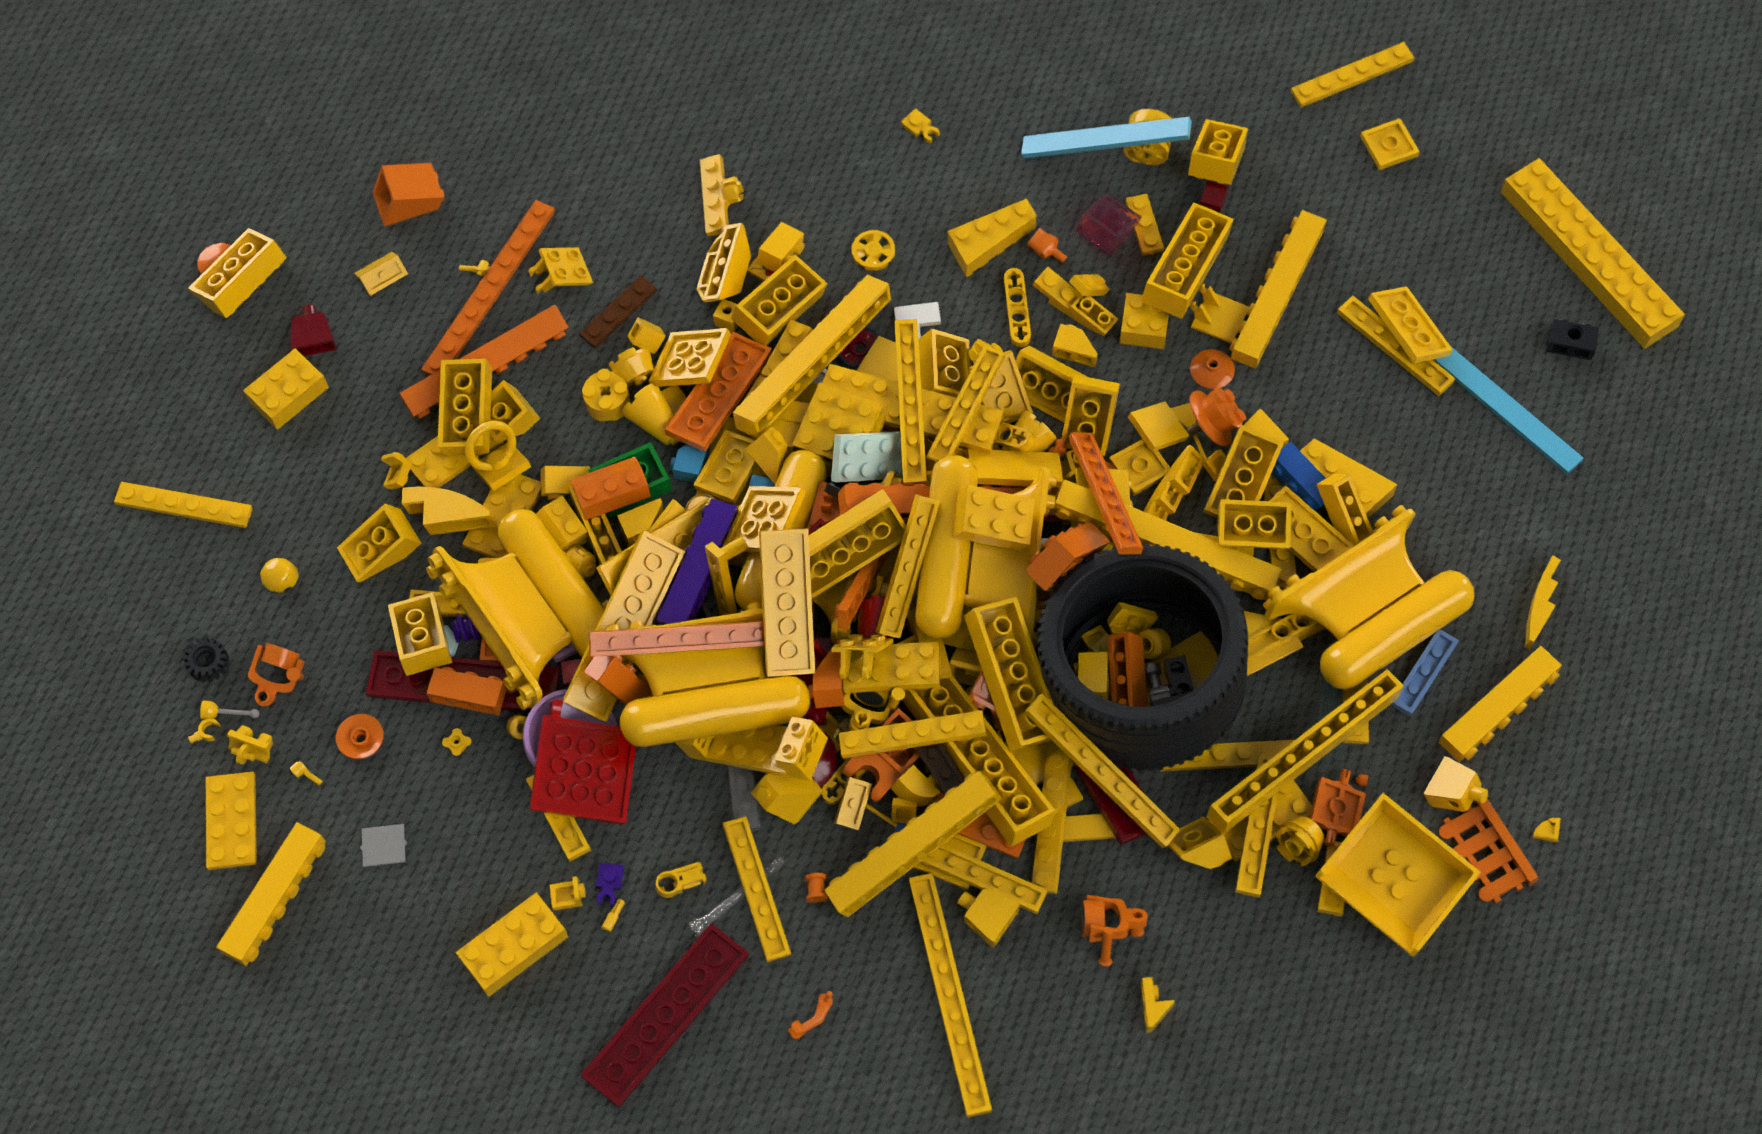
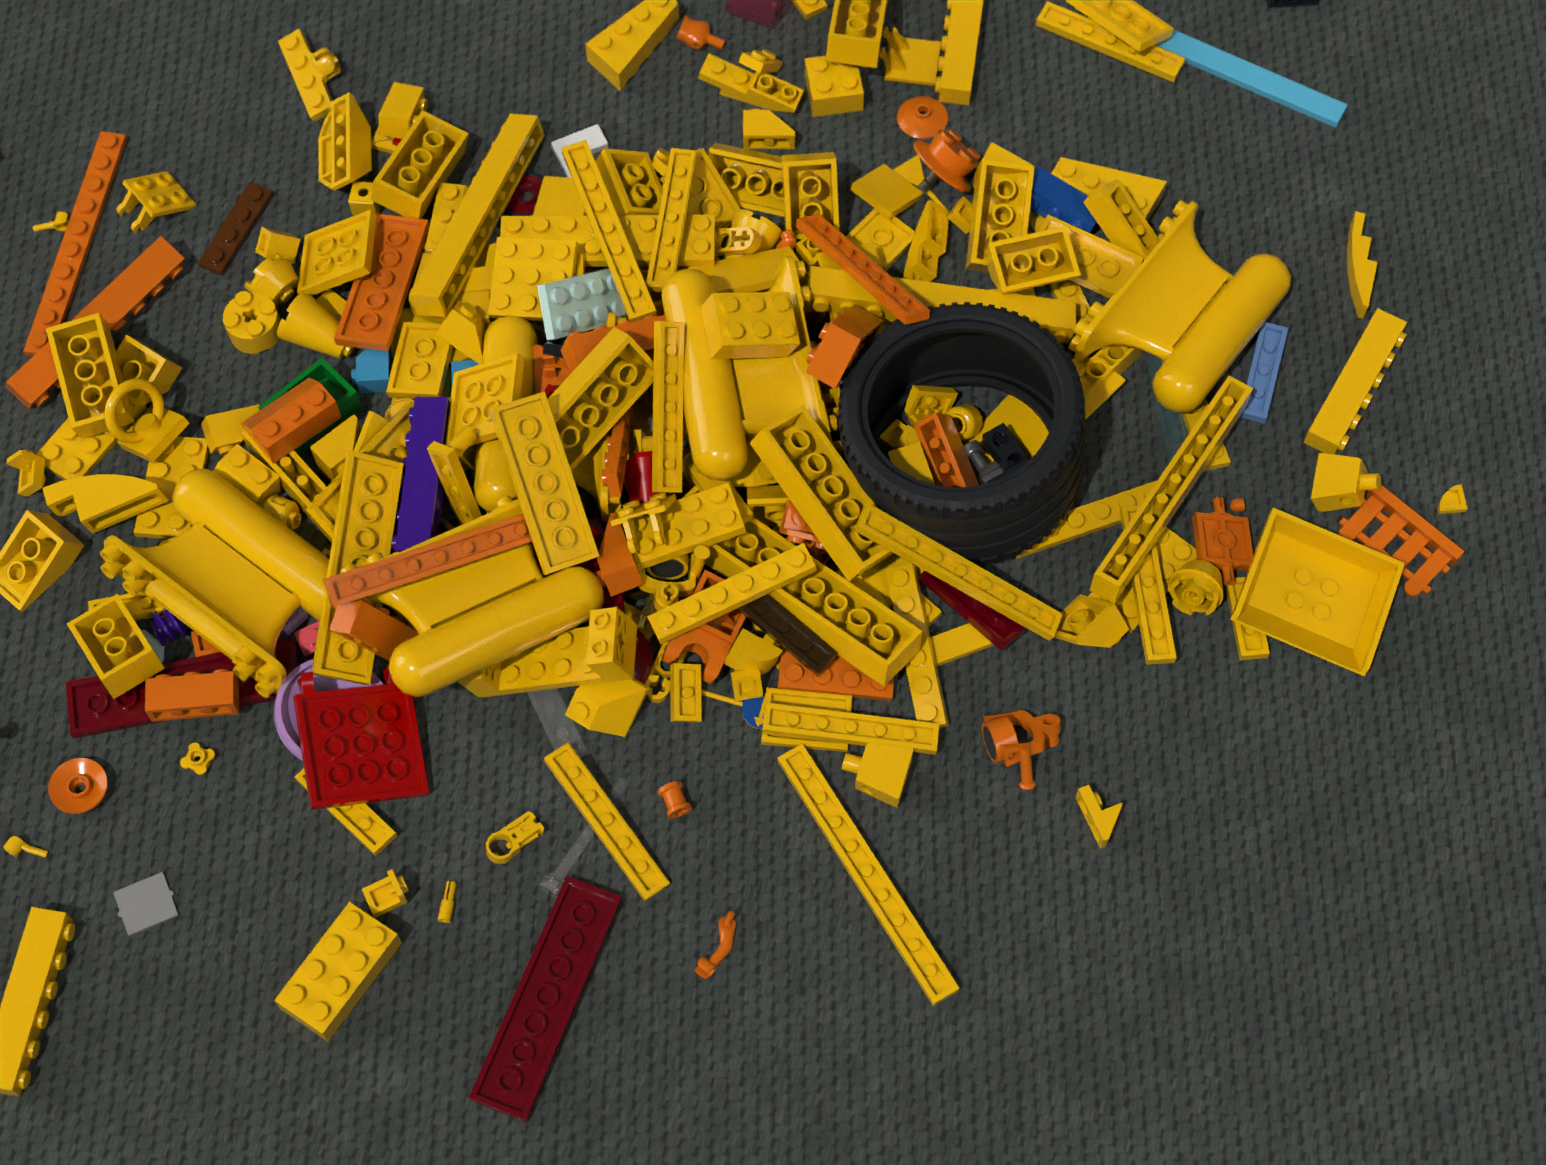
camera: 20 degrees left, 0 degrees up
(515, 726) = (263, 720): yellow piece -> none
(609, 879) = (429, 862): dark purple plate -> none
(873, 250) = (506, 88): yellow piece -> none
(912, 843) = (772, 715): yellow brick -> none
(1017, 307) = (684, 109): yellow beam -> none

